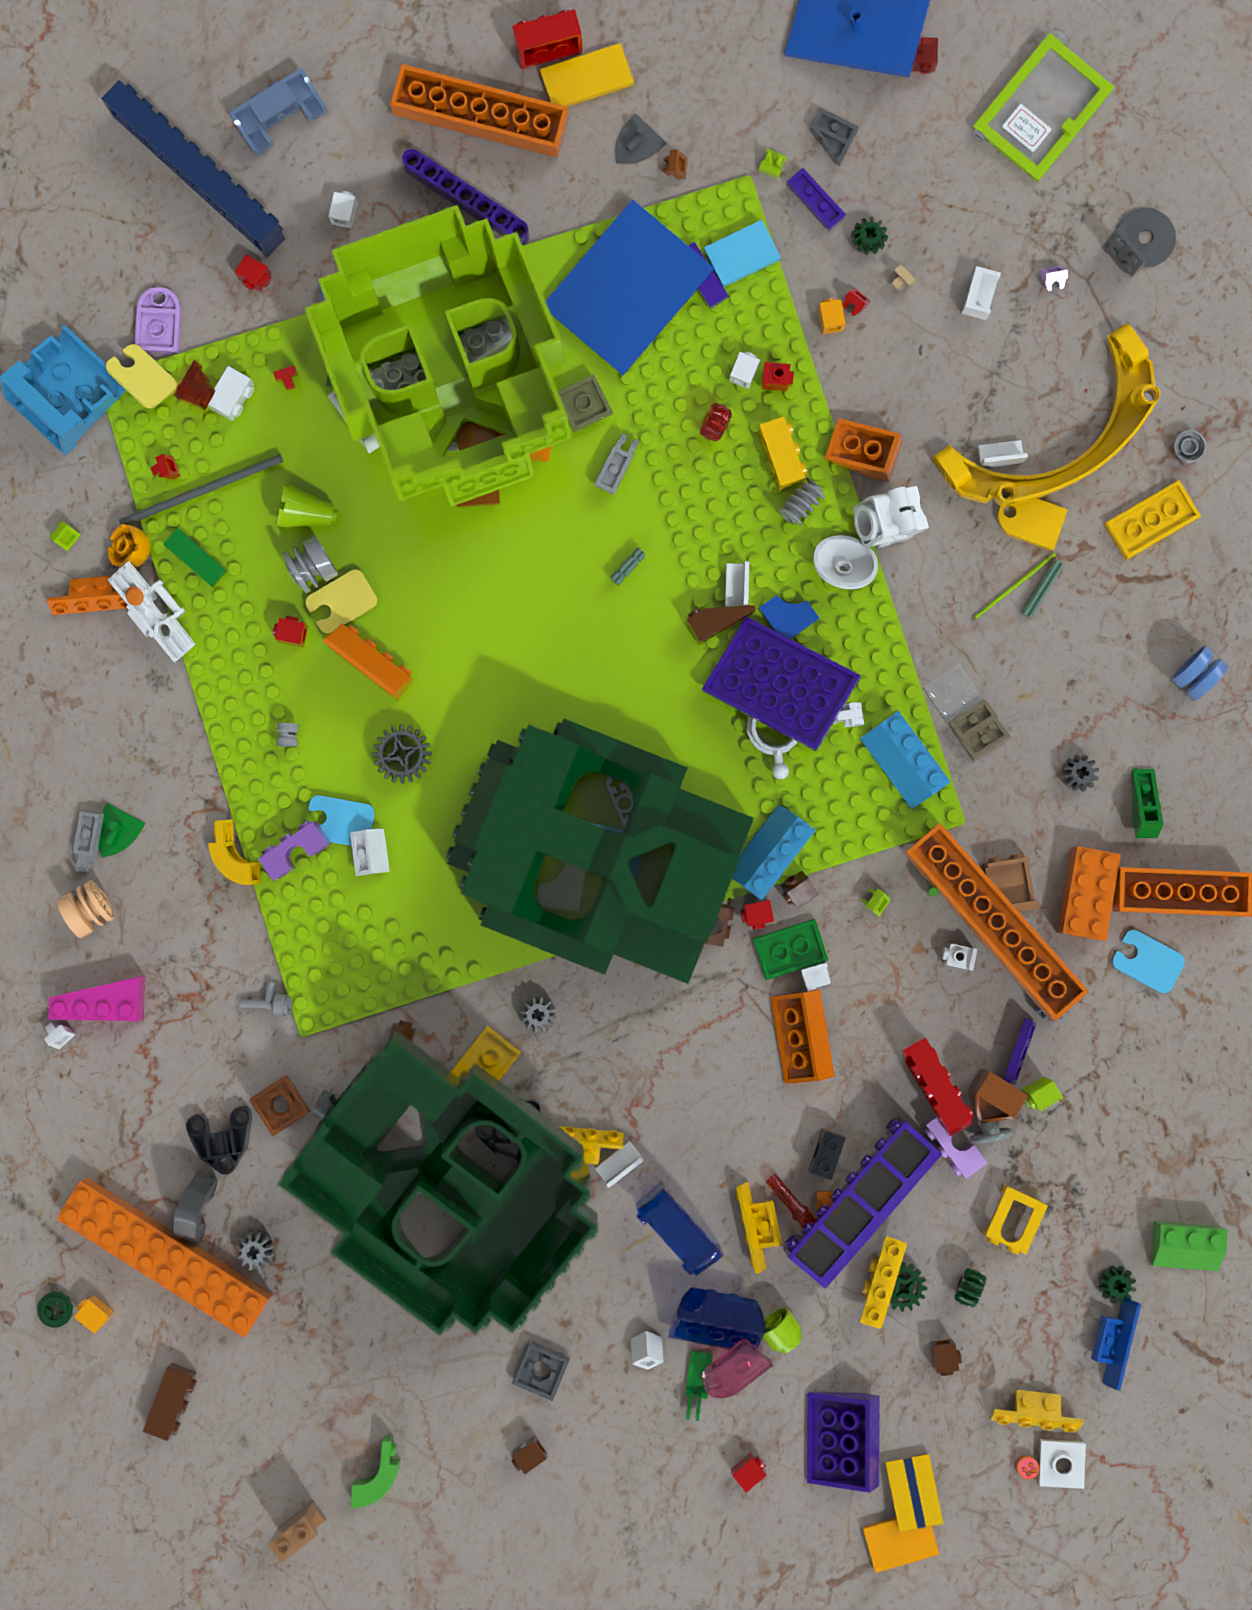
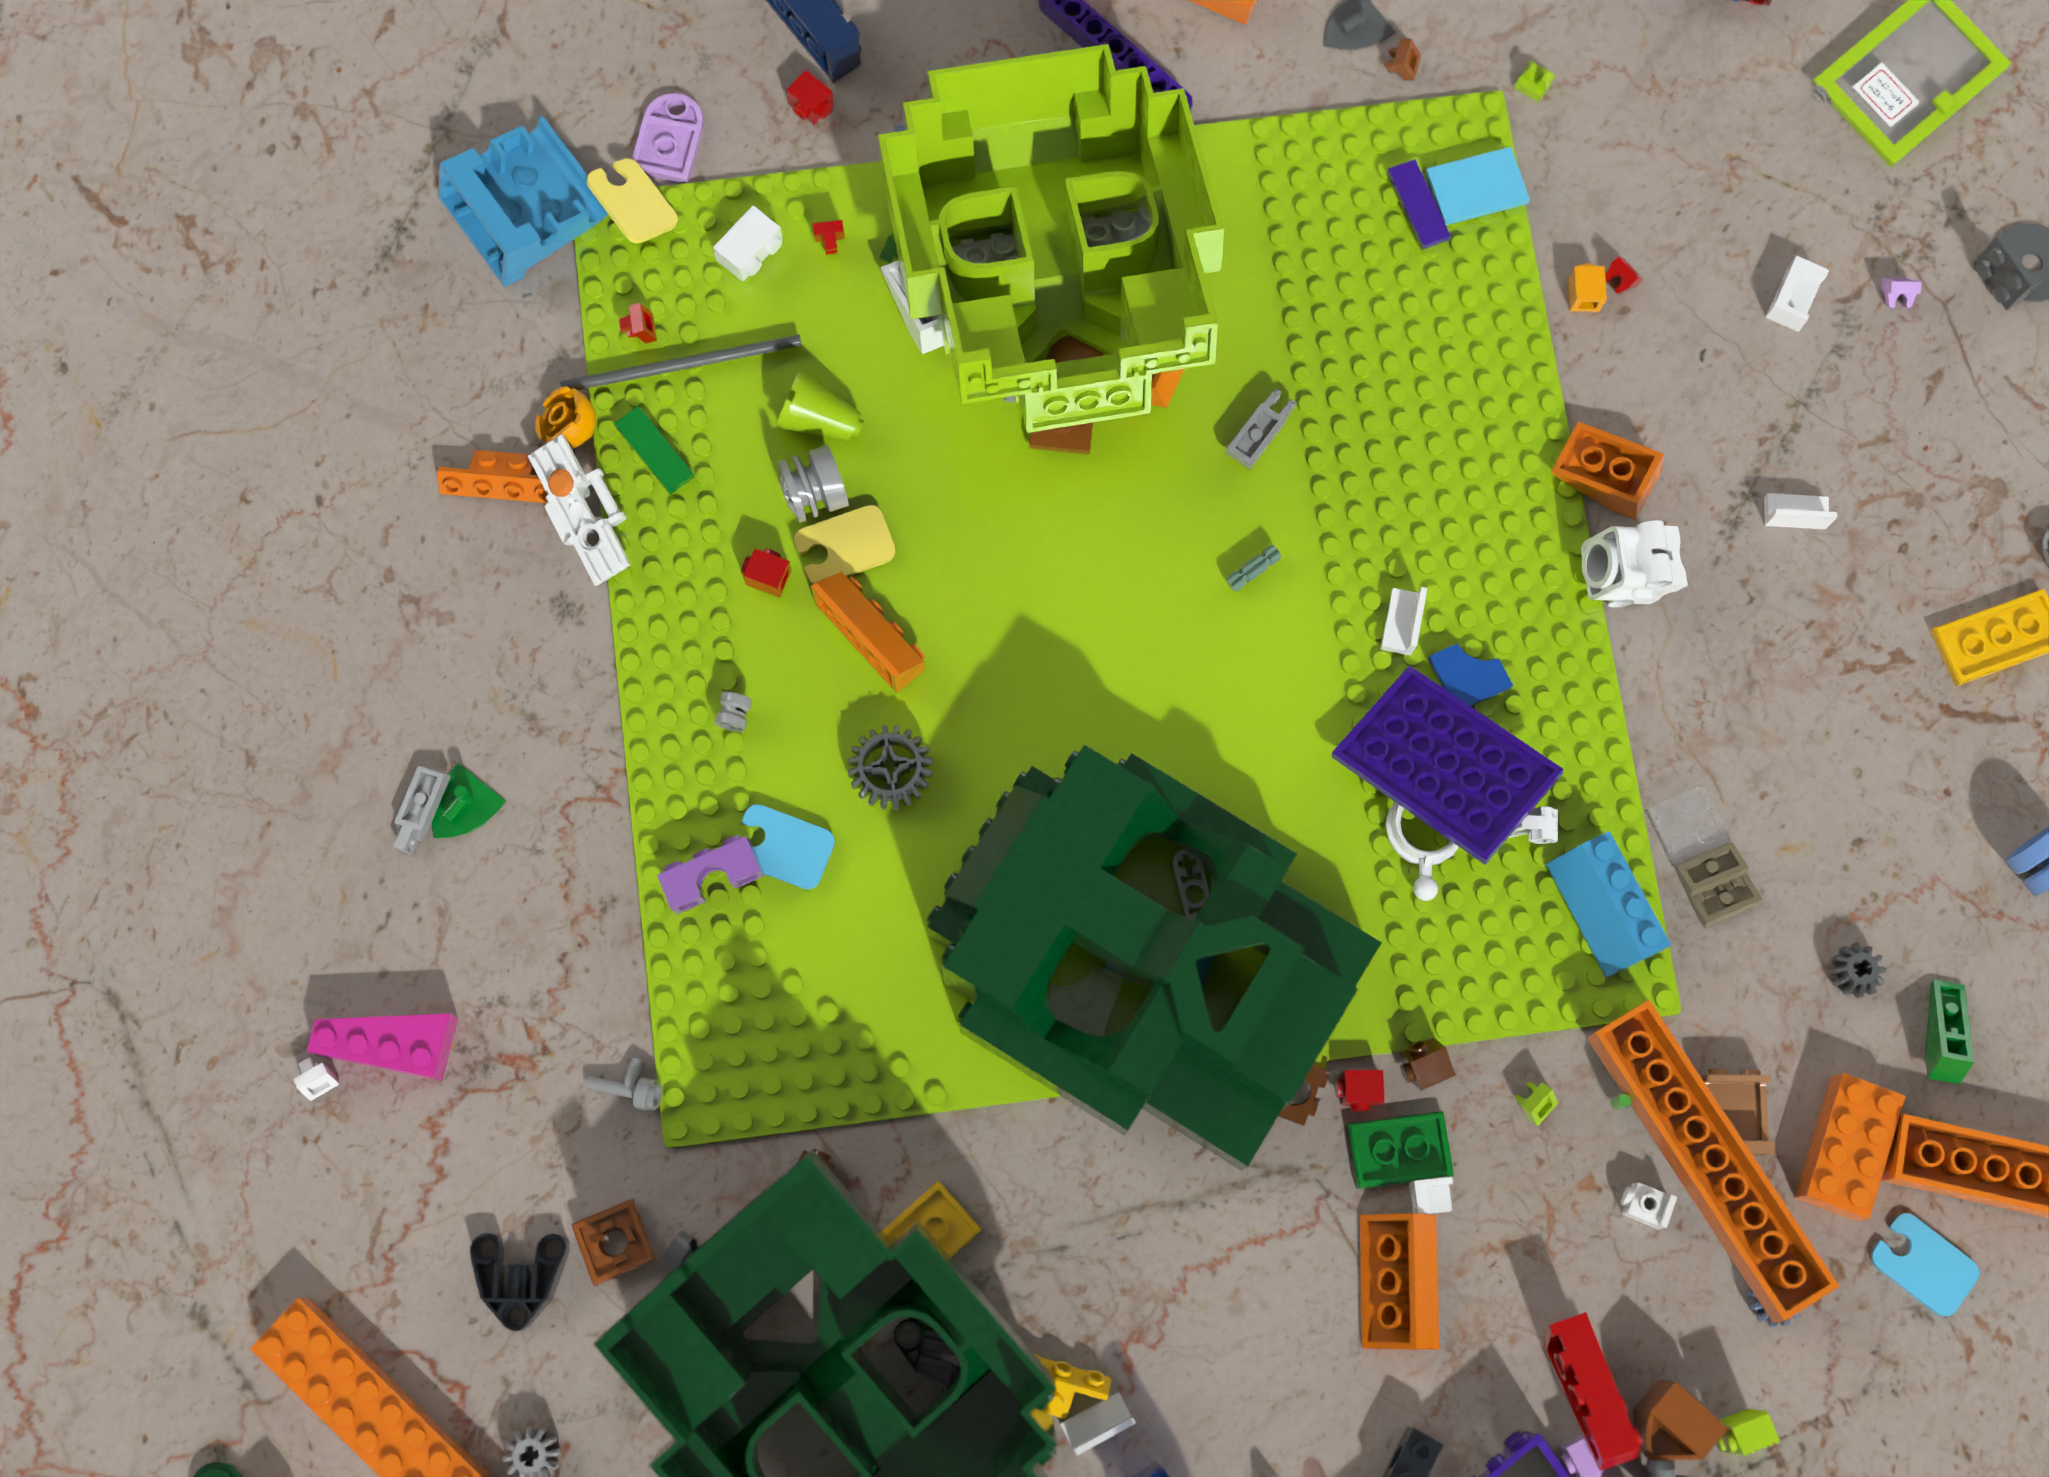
camera: 10 degrees right, 10 degrees down
(64, 536) = (481, 390): lime tile -> none
(82, 911) = (391, 904): light nougat wheel -> none
(190, 1208) = (450, 1371): dark grey connector -> none
(195, 387) = (702, 227): clear red wing -> none
(228, 859) = (612, 869): yellow arch -> none
(343, 209) = (947, 39): white brick -> none
(369, 851) = (817, 896): white panel -> none
(541, 1007) = (1024, 1168): light grey gear -> none
(584, 403) = (1237, 342): olive plate -> none
(628, 287) = (1317, 202): blue piece -> none
(712, 621) = (1362, 662): reddish brown slope -> none
(715, 422) = (1408, 395): clear red gear -> none
(744, 369) = (1458, 335): white brick -> none
(771, 851) = (1396, 1000): dark azure slope -> none
(776, 376) = (1501, 351): red brick -> none
(782, 453) = (1493, 453): yellow brick -> none
(801, 502) = (1511, 522): light grey piece -> none
(816, 199) = (1587, 135): dark purple plate -> none
(834, 134) = (1623, 58): dark grey wing -> none
(845, 562) = (1561, 614): white dish -> none
(872, 228) = (1663, 188): dark green gear -> none
(903, 278) = (1694, 255): tan tile -> none
(1014, 586) = (1793, 693): lime piece -> none
(1020, 1051) = (1721, 1360): dark purple tile -> none
(1033, 522) = (1831, 608): yellow tile -> none
(1042, 589) = (1833, 704): sand green axle -> none
(1130, 409) = (1986, 481): yellow panel -> none

